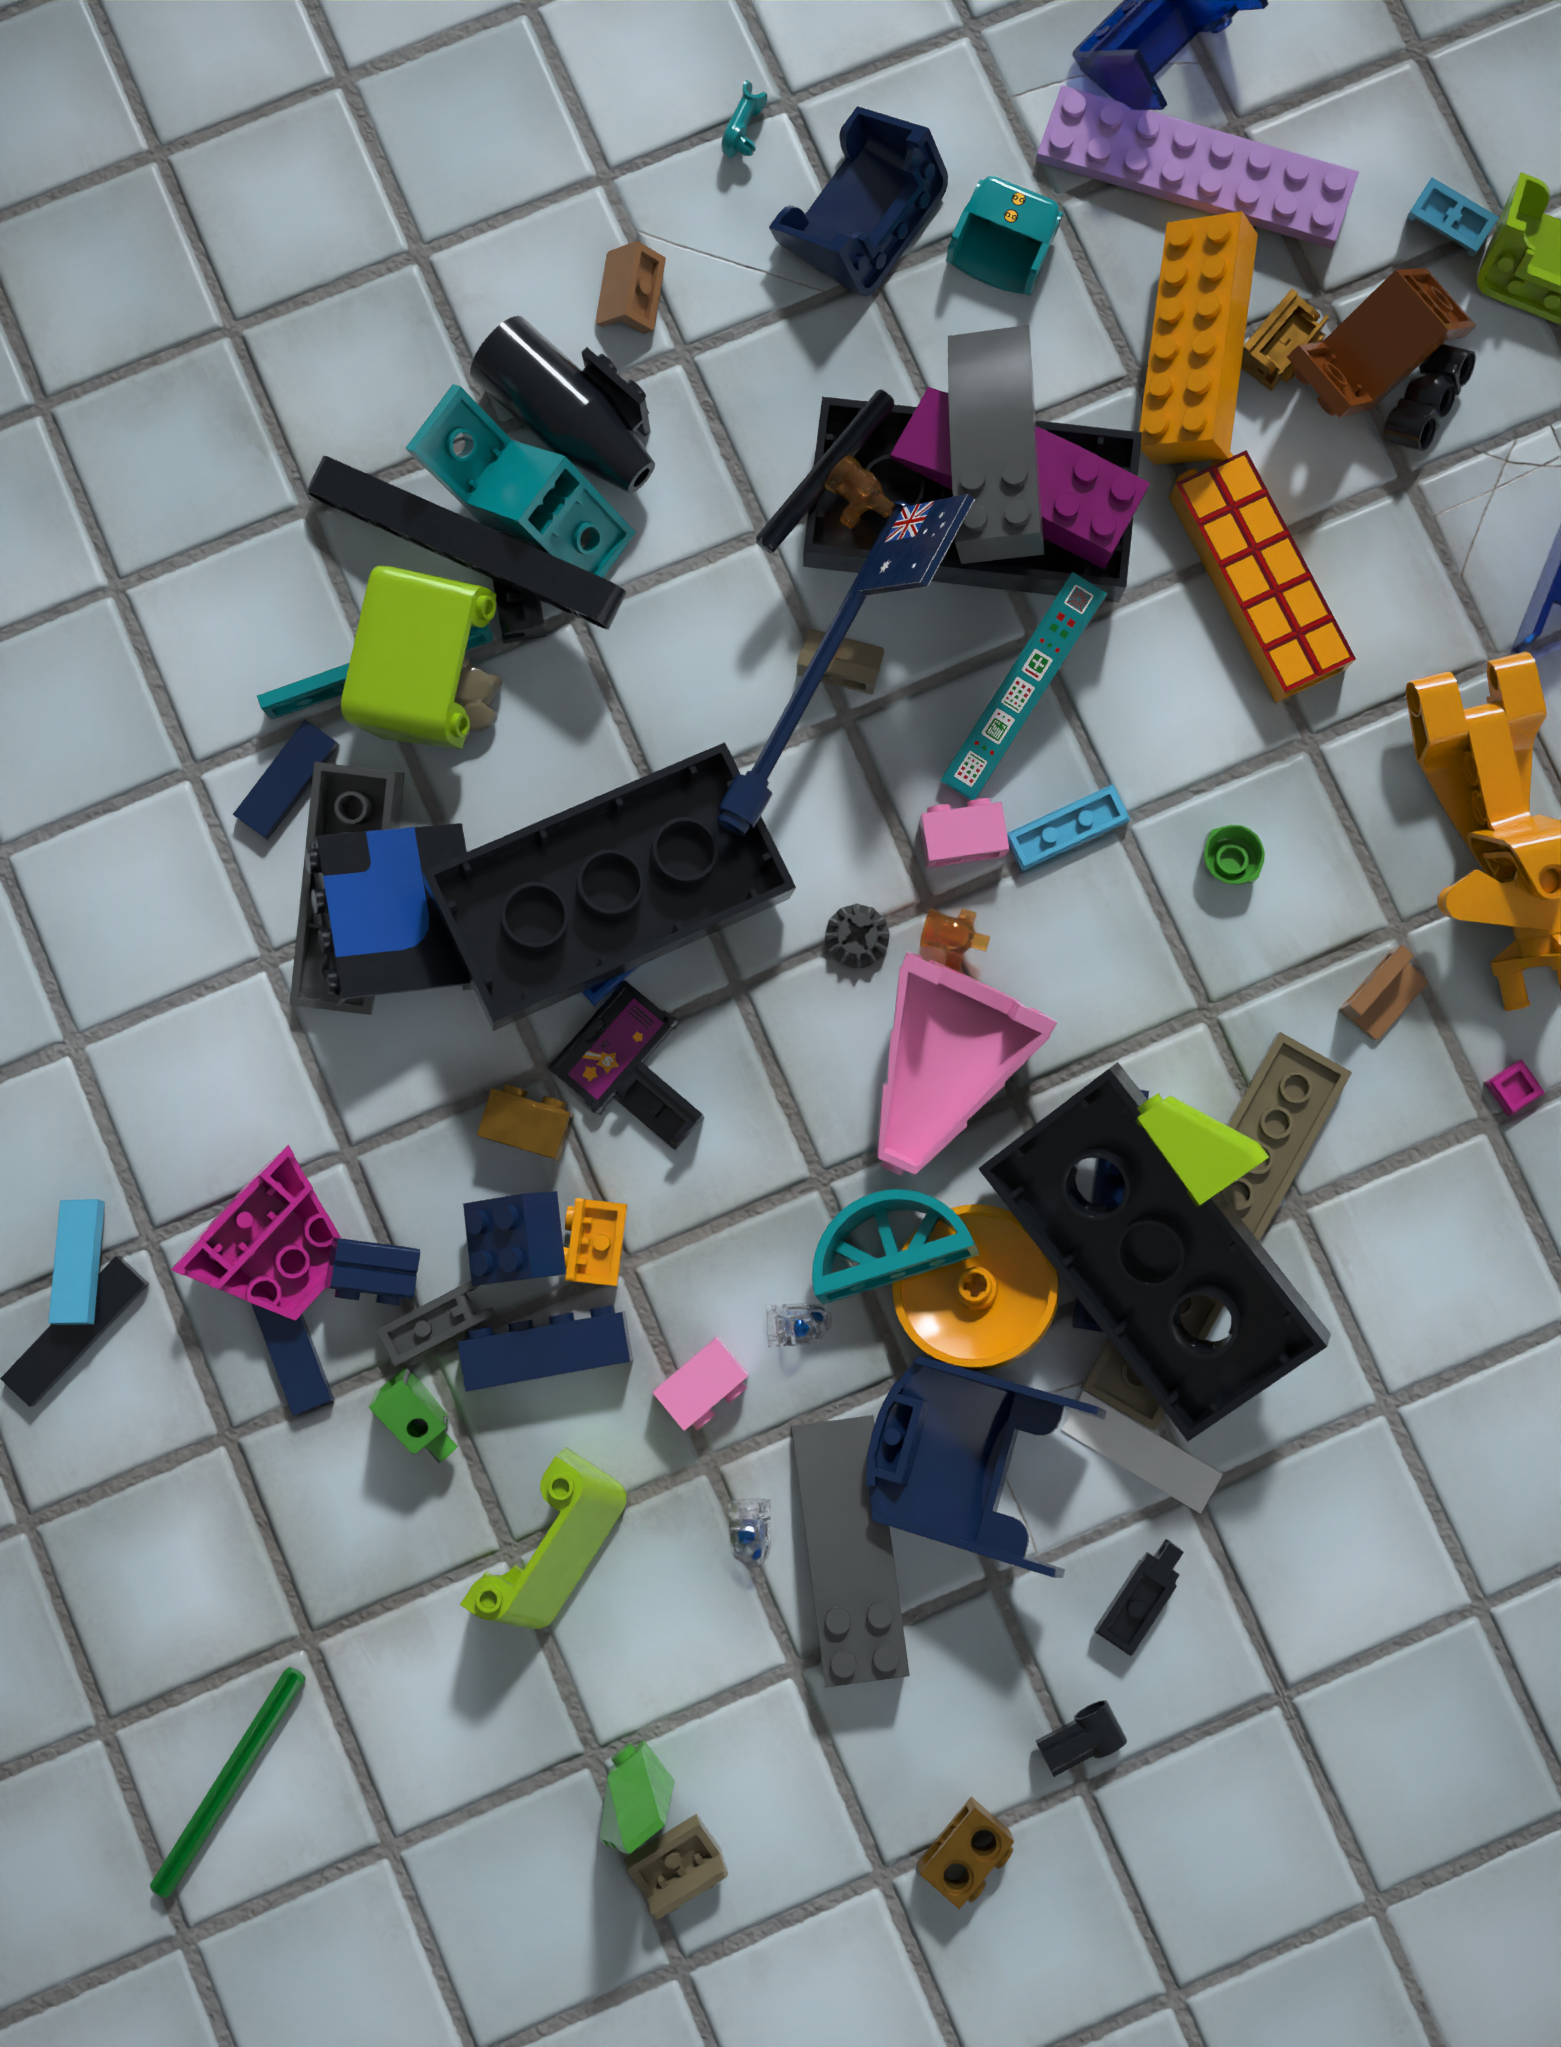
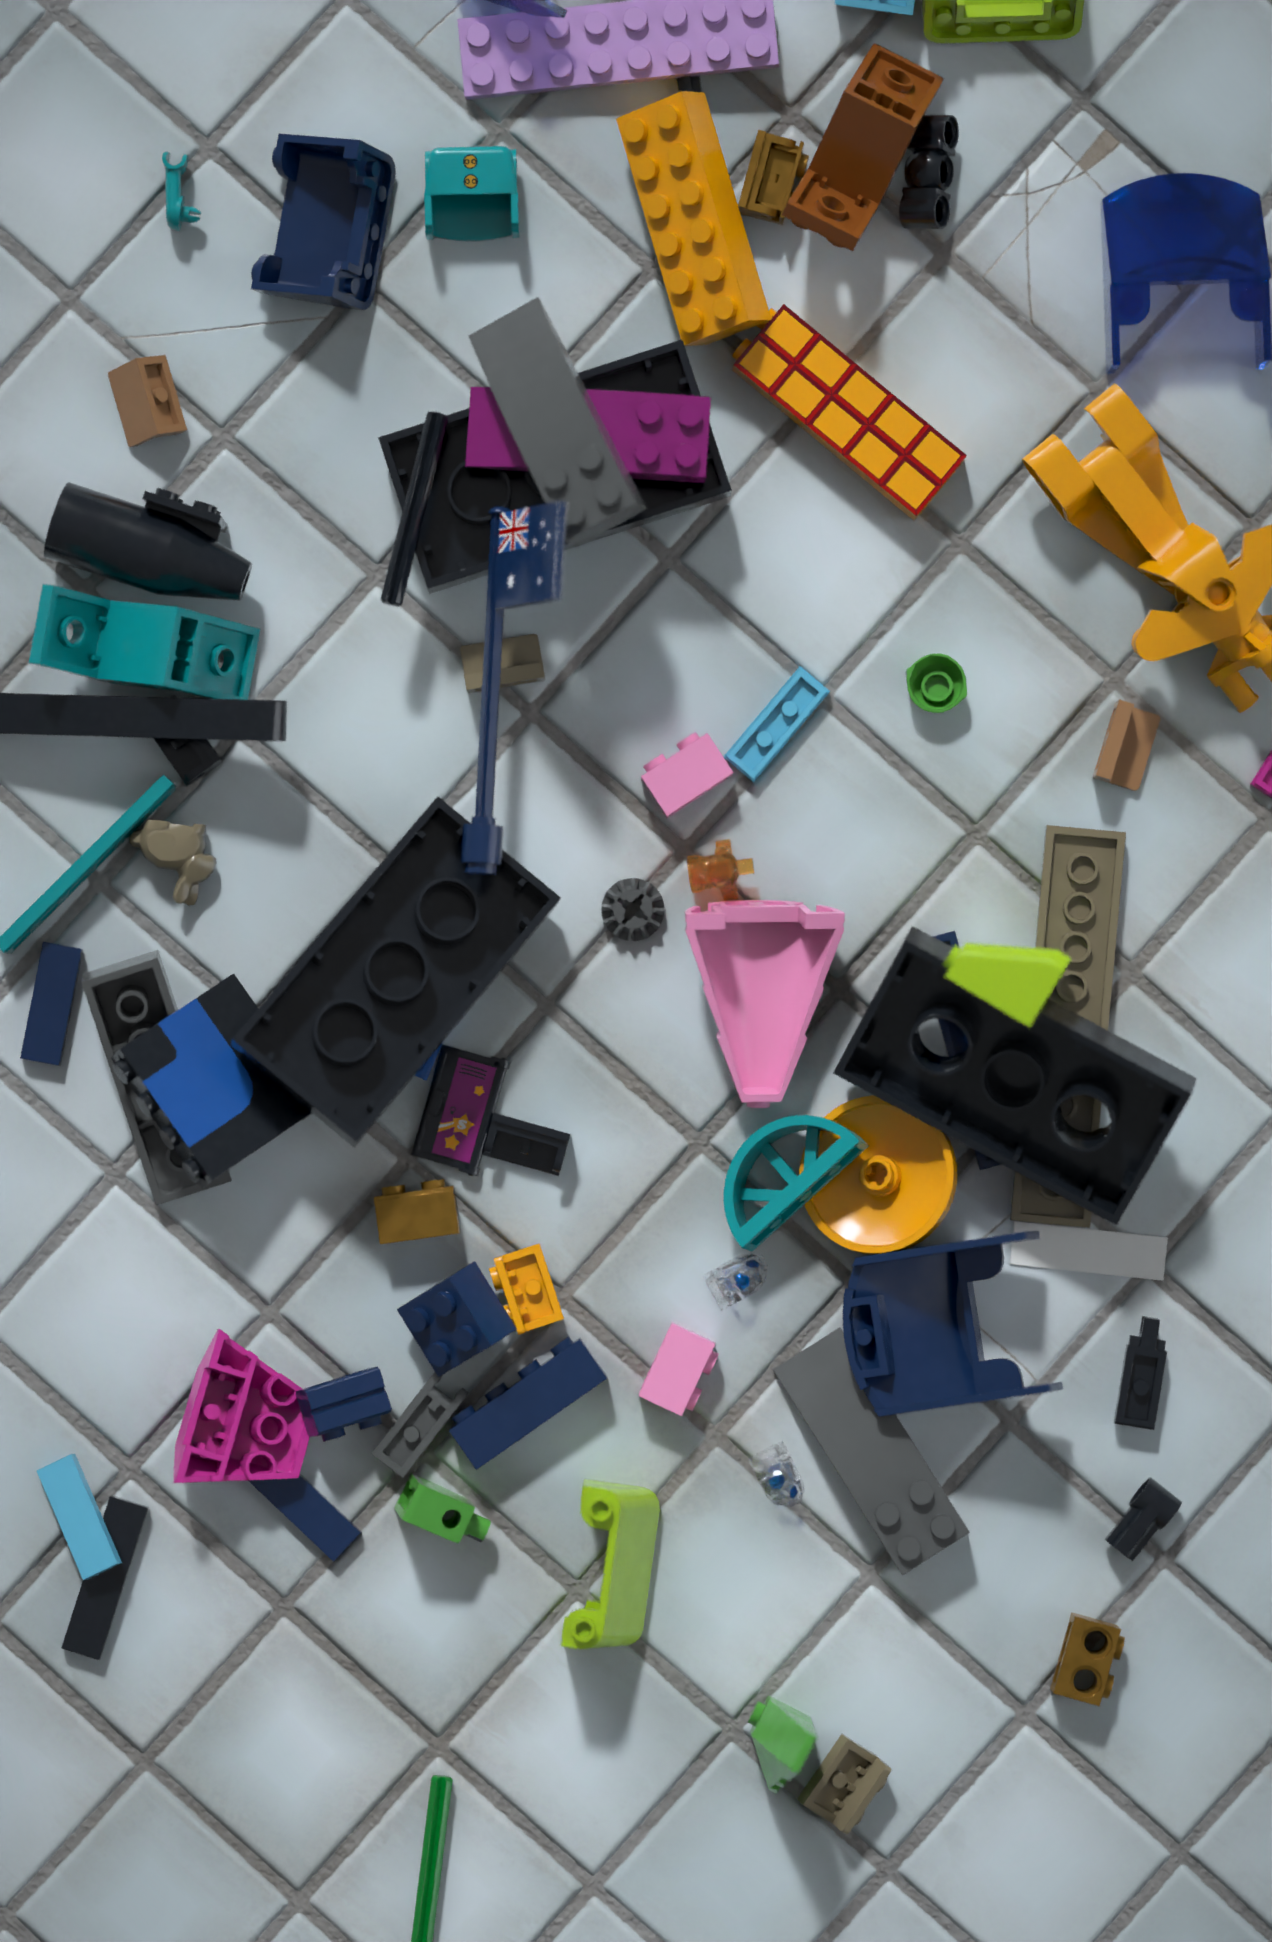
camera: 30 degrees left, 5 degrees up
(412, 656) = (121, 842): lime windscreen -> none
(859, 488) = (454, 513): clear orange piece -> none
(1023, 686) = (680, 619): teal tile -> none

